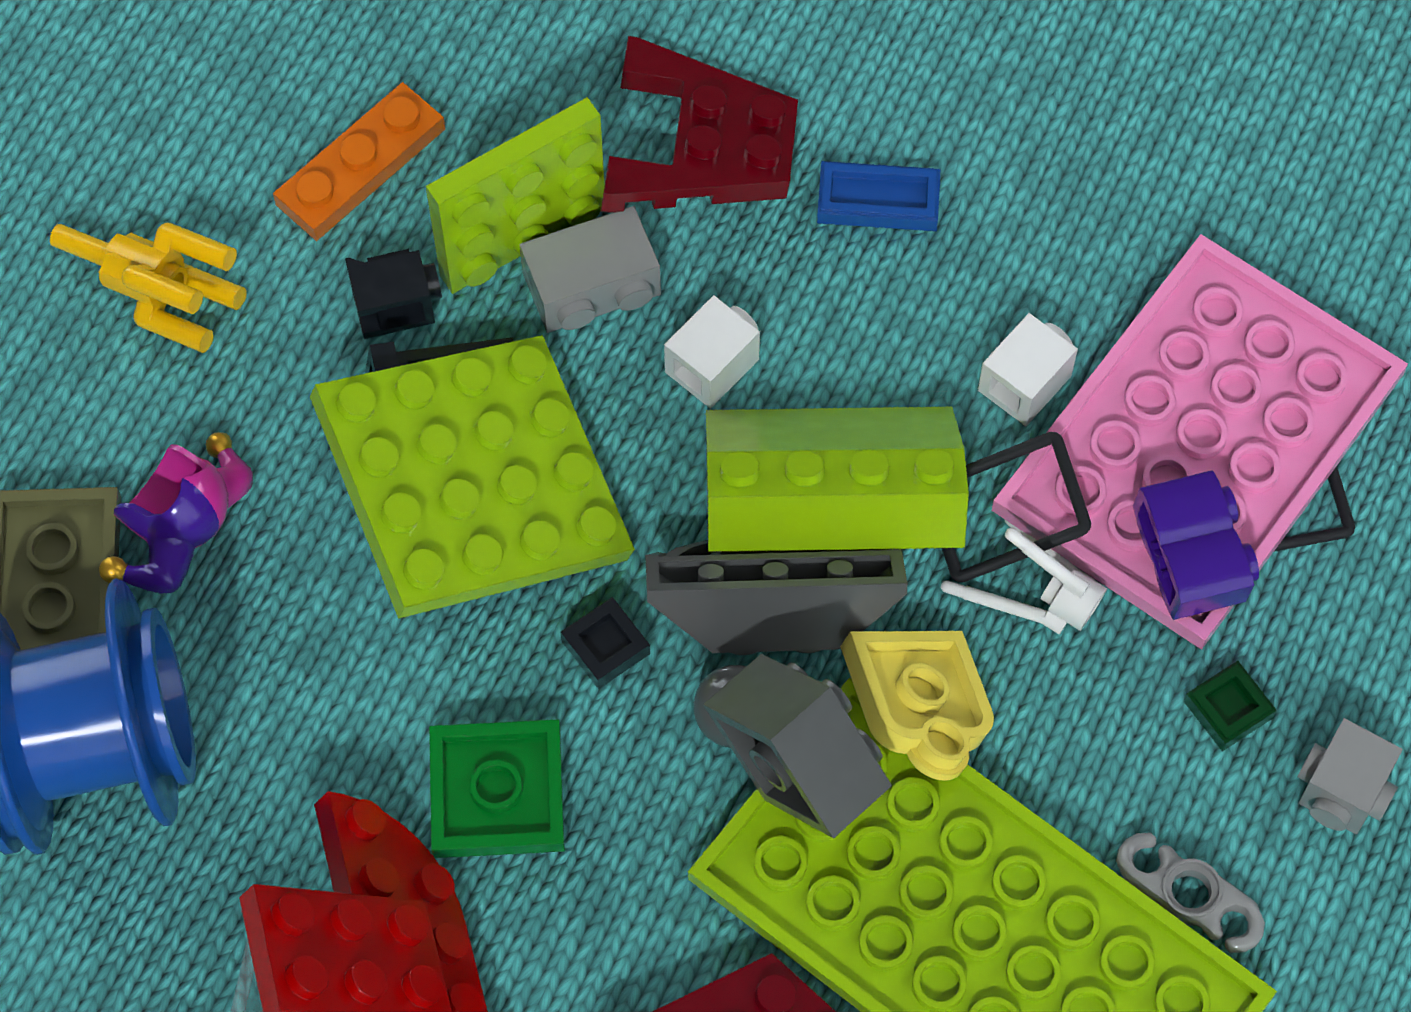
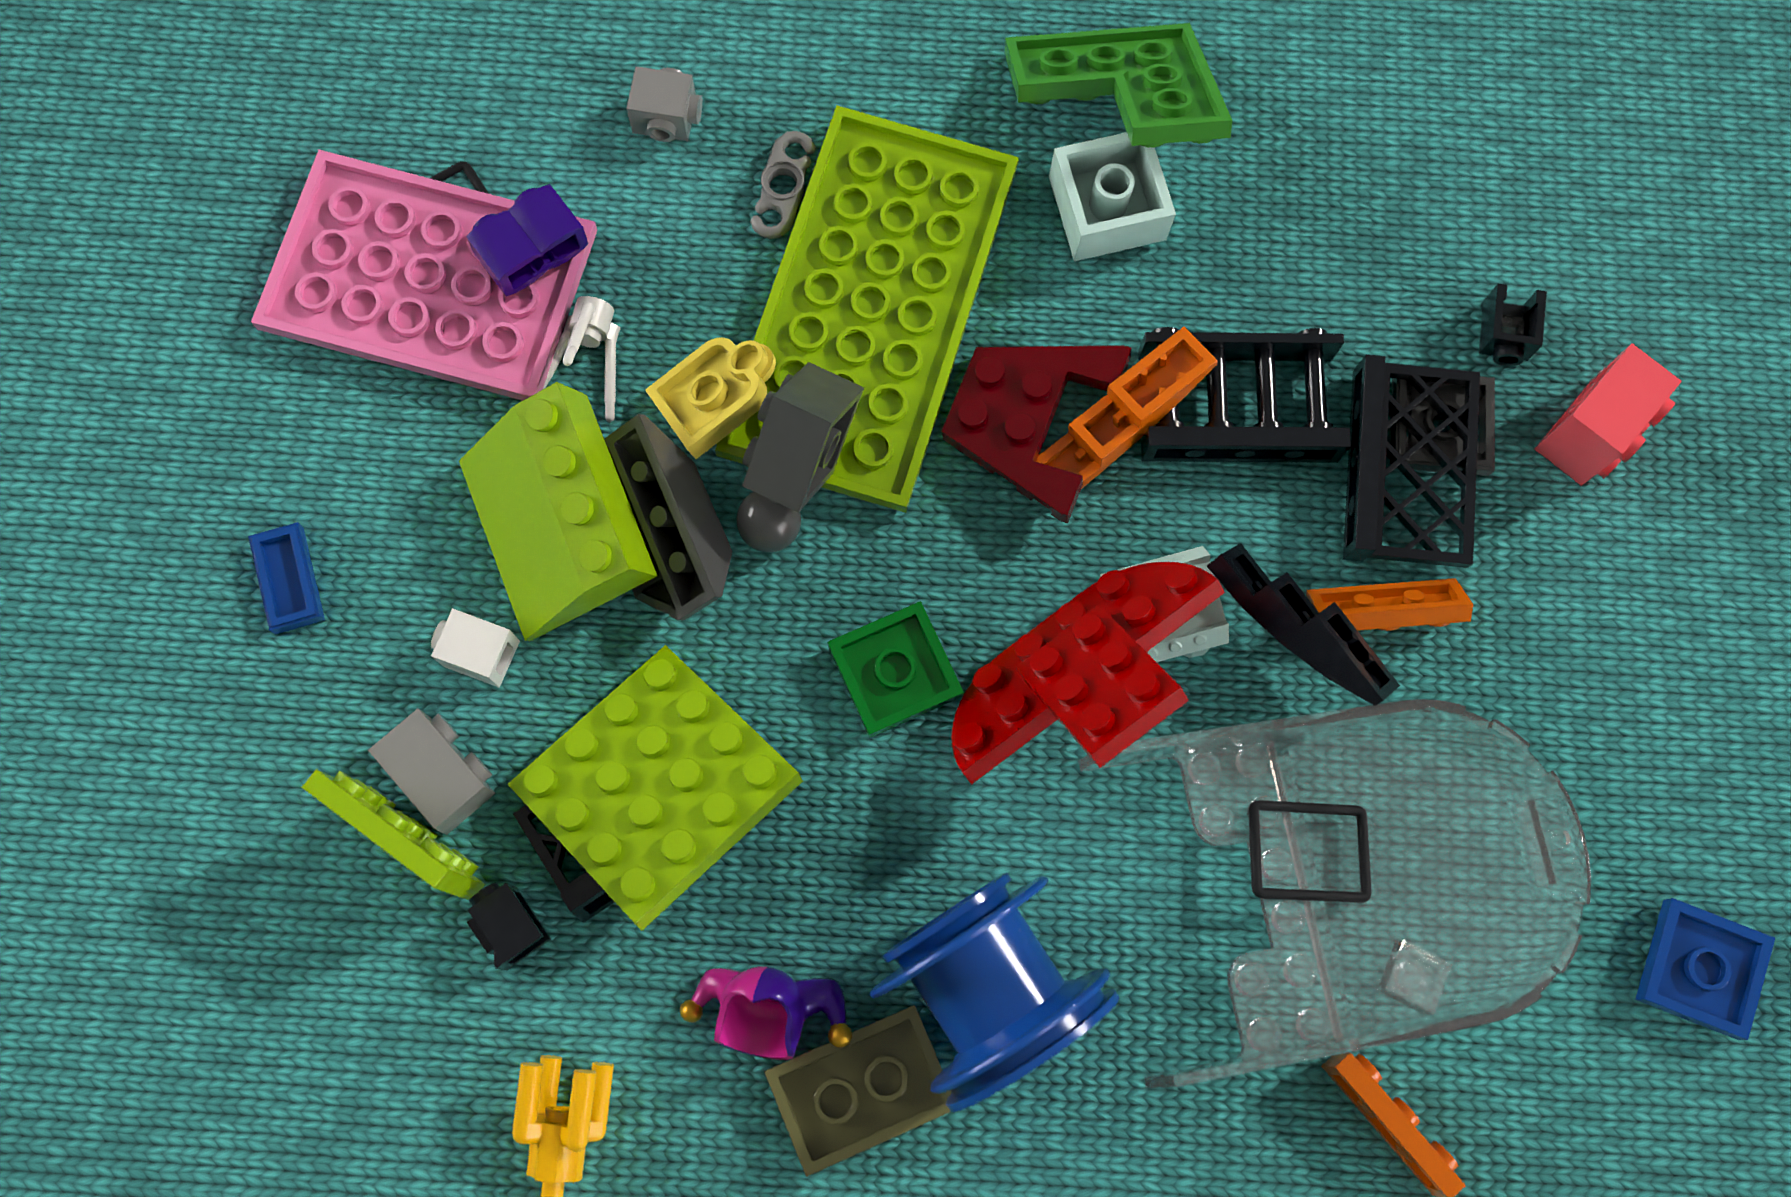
camera: 115 degrees left, 10 degrees up
(359, 161) = (385, 1013): orange plate -> none
(605, 642) = (750, 636): black plate -> none
(729, 135) = (268, 709): dark red wing -> none
(1028, 368) = (410, 409): white brick -> none
(1045, 543) = (508, 339): black piece -> none
(1230, 705) = (633, 200): dark green tile -> none

